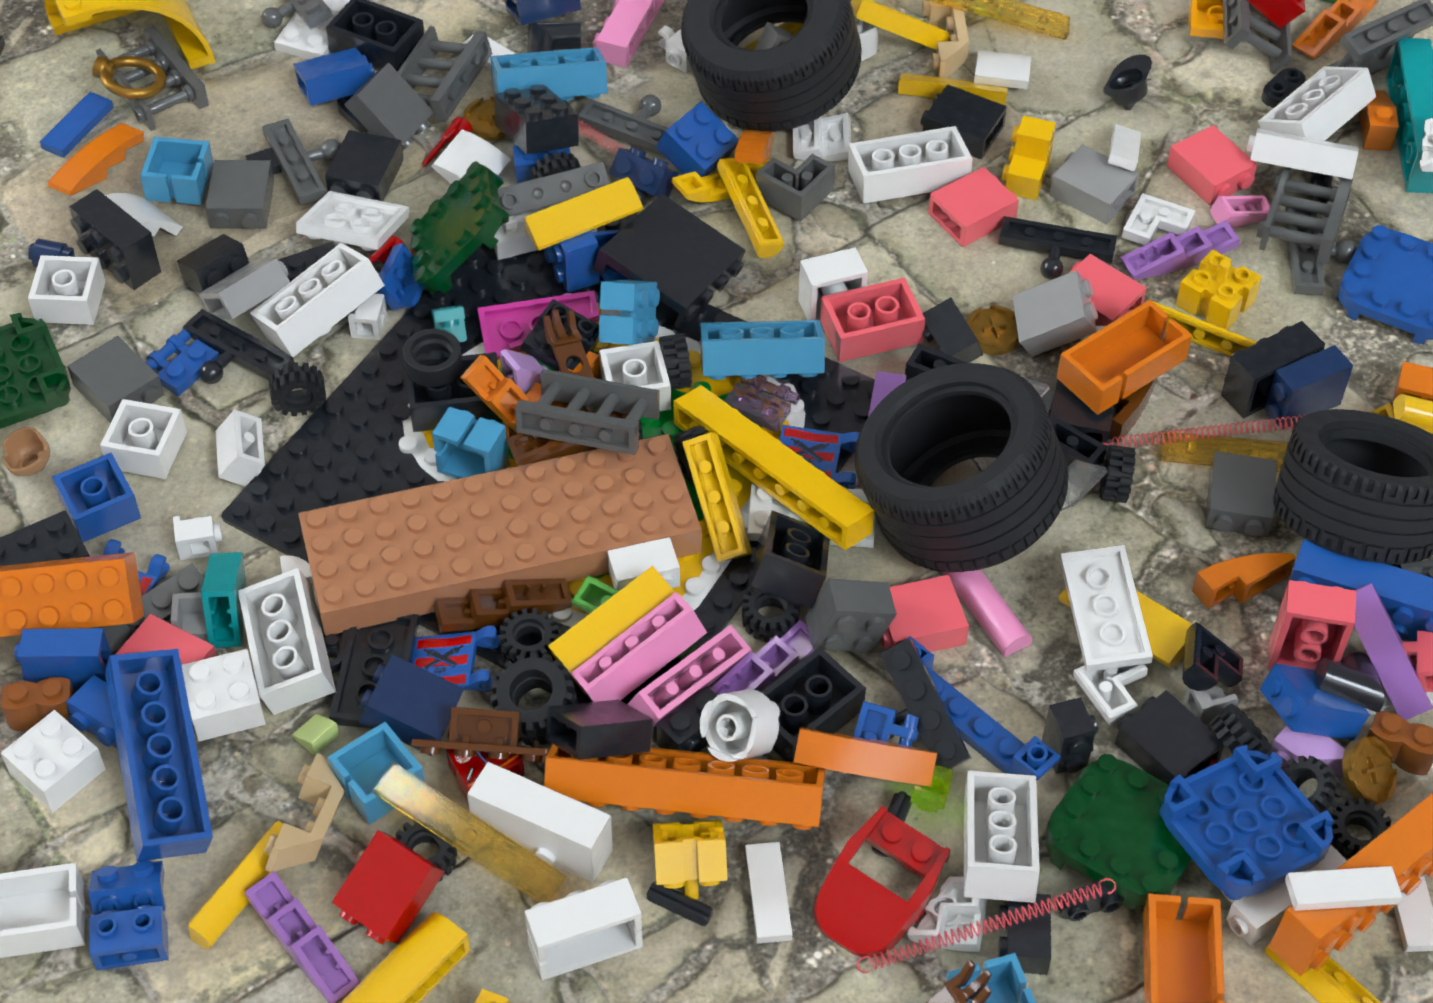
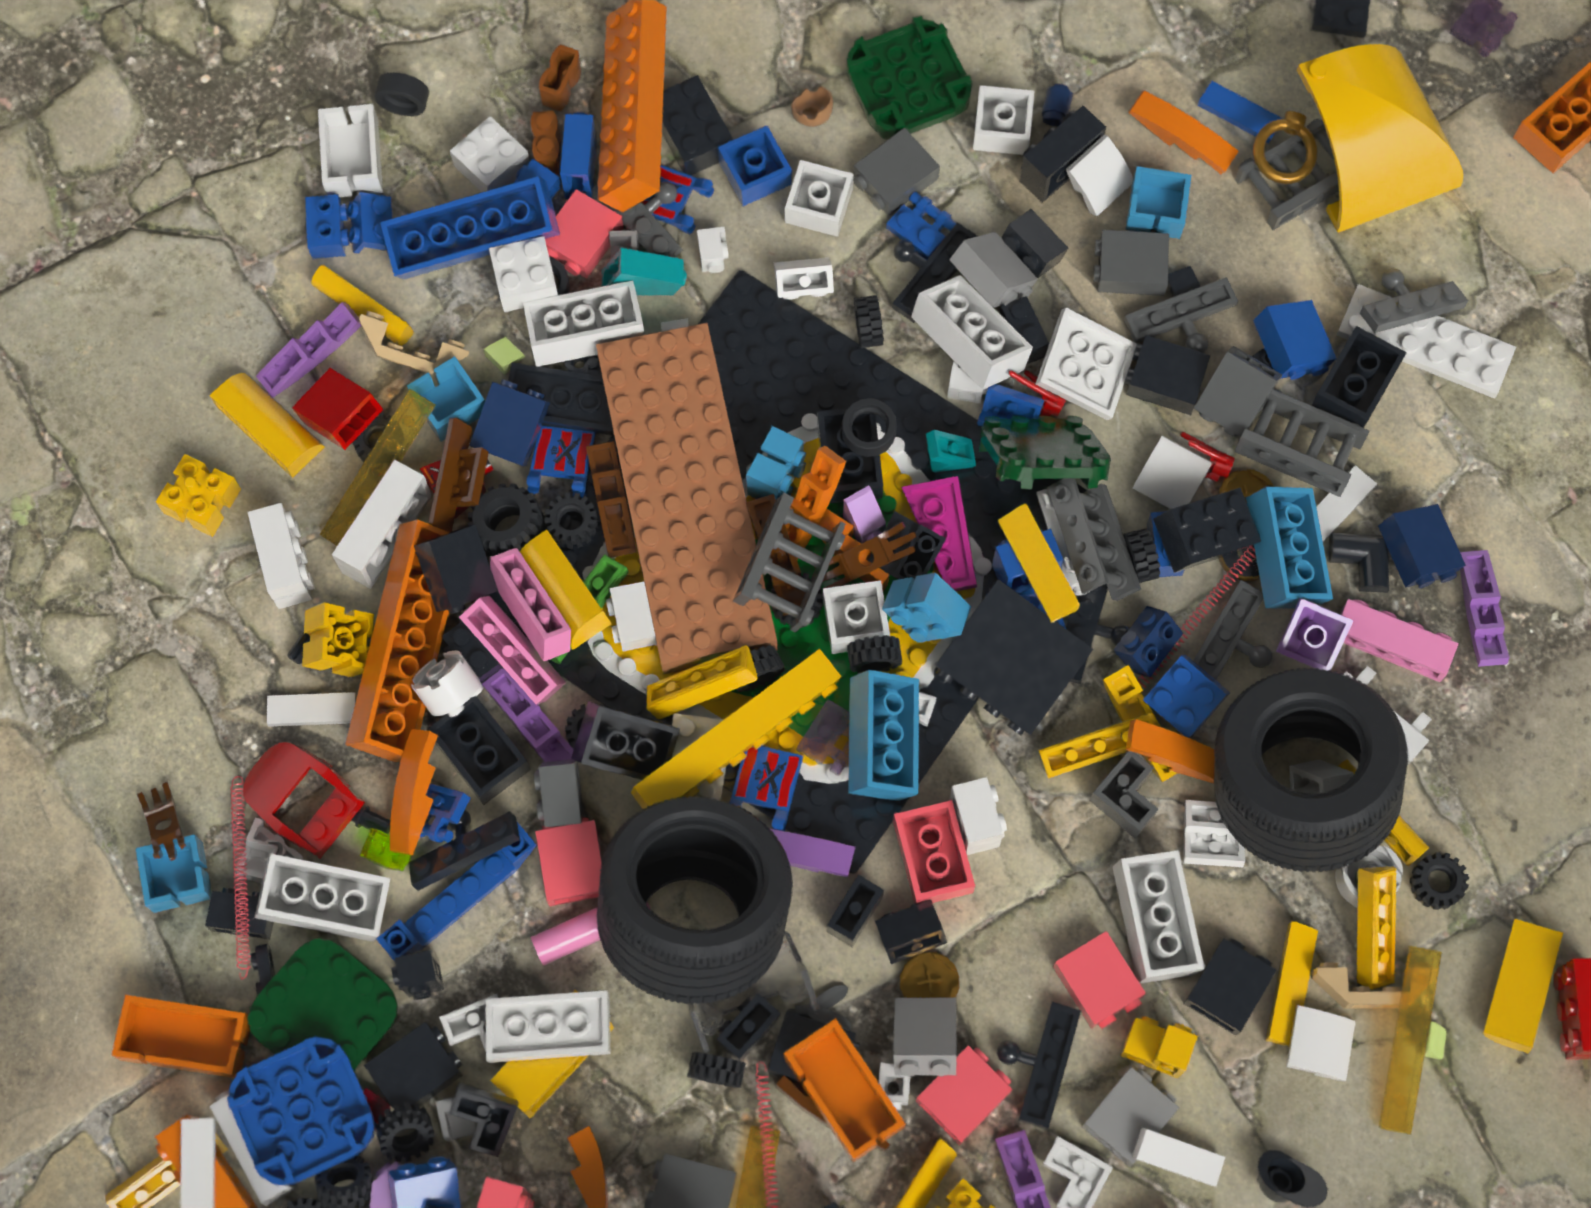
camera: 95 degrees right, 20 degrees up
(633, 59) = (1314, 635): none -> medium lavender slope

